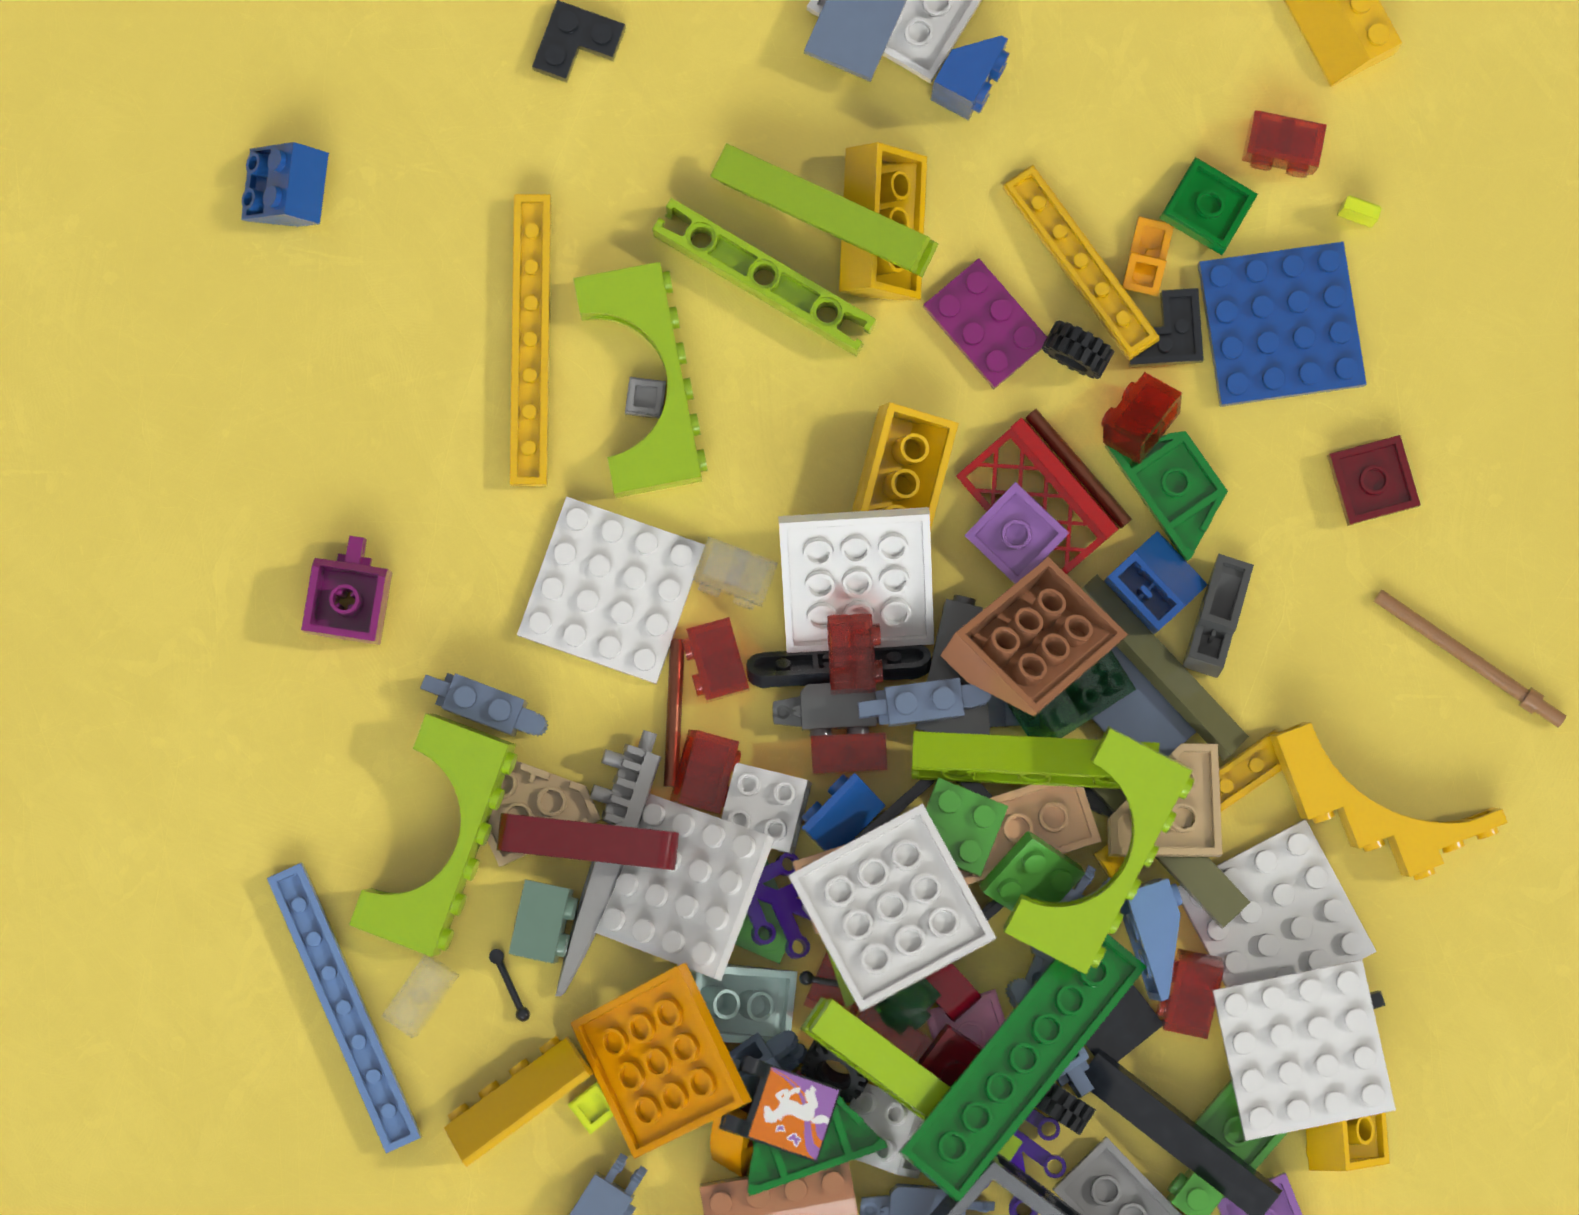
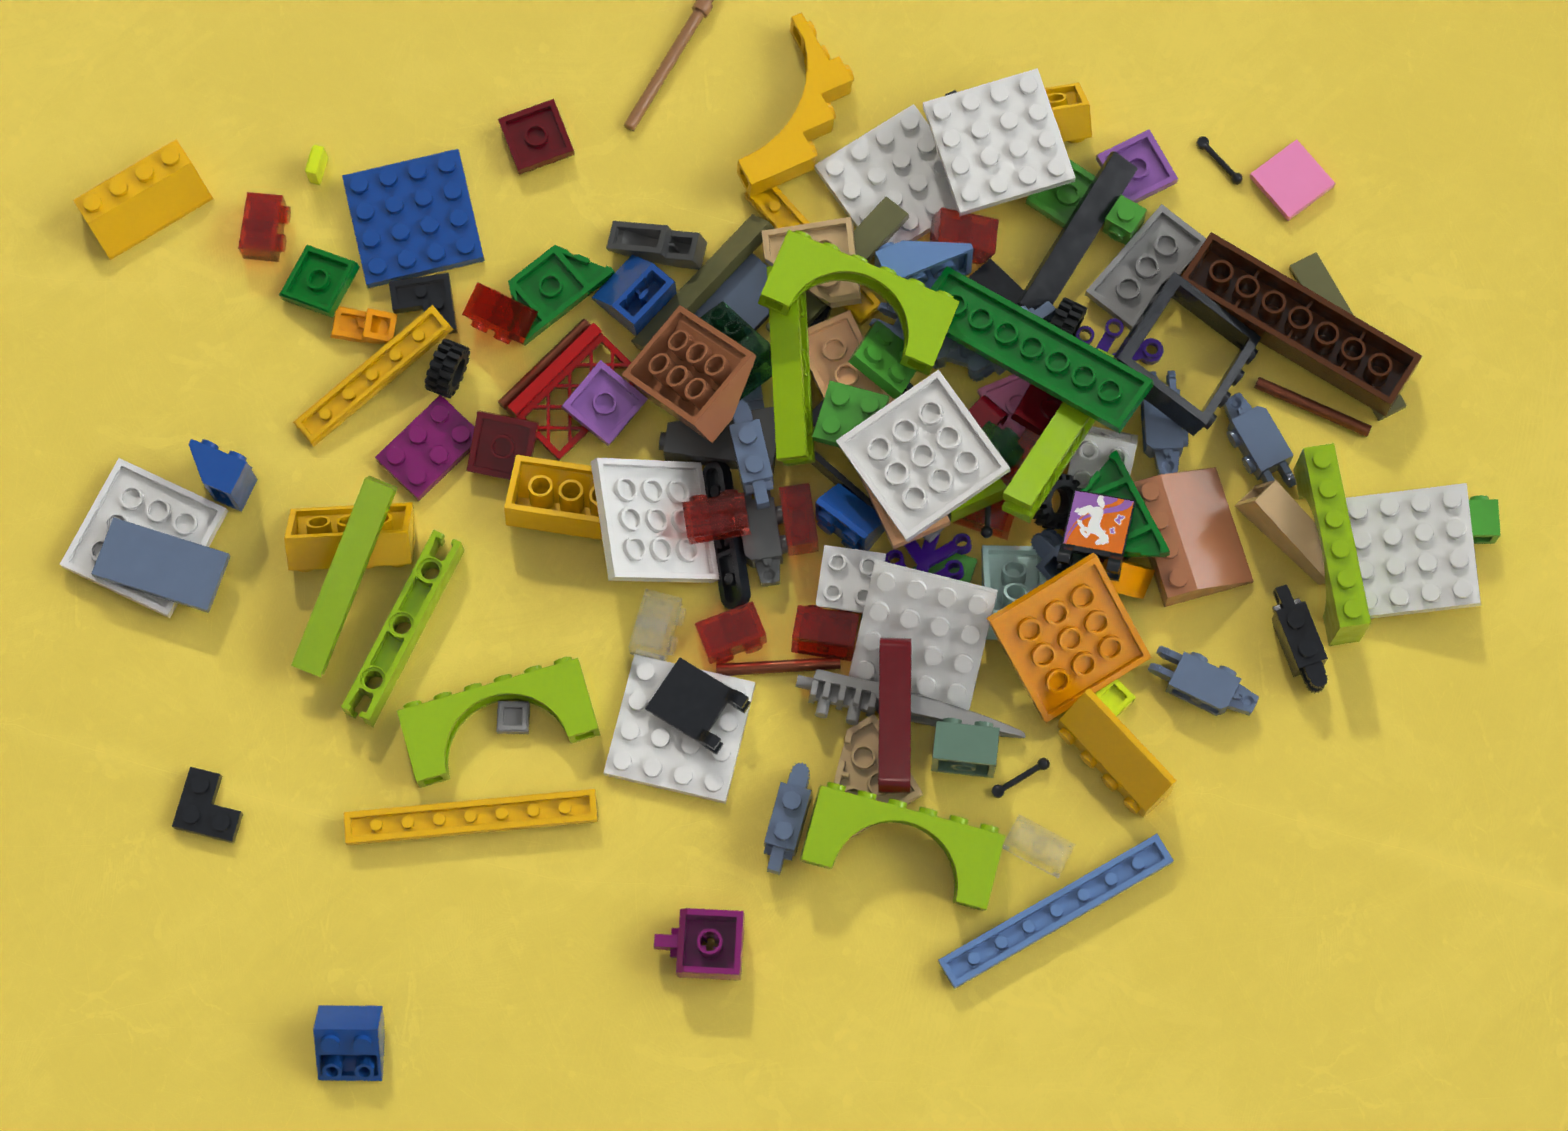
camera: 90 degrees left, 10 degrees down
(634, 608) = (693, 703): none -> black flag
(980, 406) = (497, 443): none -> dark red plate

